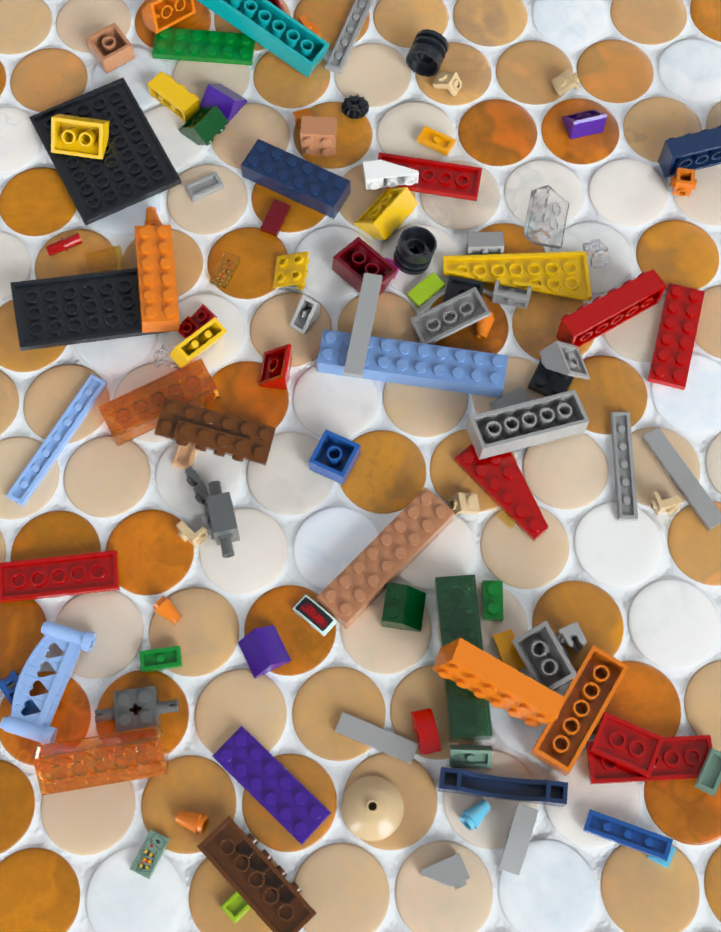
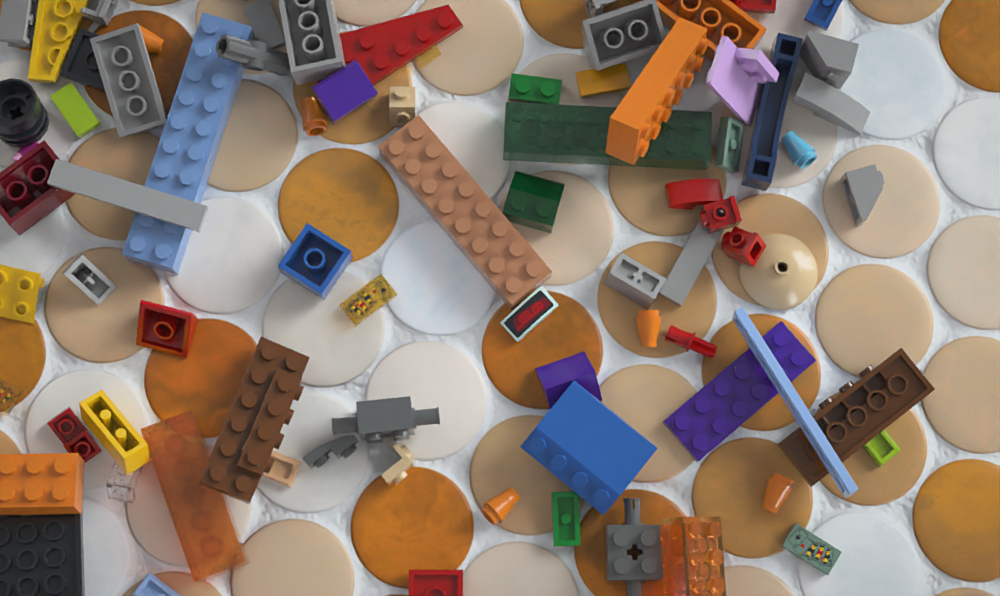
camera: 90 degrees left, 10 degrees up
(212, 667) = (588, 447): none -> blue slope
(259, 823) = (794, 403): none -> light blue tile
(305, 740) = (689, 341): none -> red axle
(312, 499) = (368, 300): none -> clear yellow tile
(314, 706) = (648, 327): none -> orange cone
(349, 691) = (634, 281): none -> light grey hinge
(388, 769) = (743, 246): none -> red brick
(409, 759) = (714, 223): none -> red brick
(443, 443) = (312, 117): none -> orange cone
(463, 458) = (344, 91): none -> dark purple slope
(480, 389) = (253, 55): none -> dark grey piece
(519, 749) = (739, 77): none -> lavender bracket
(554, 832) = (828, 57): none -> light grey slope

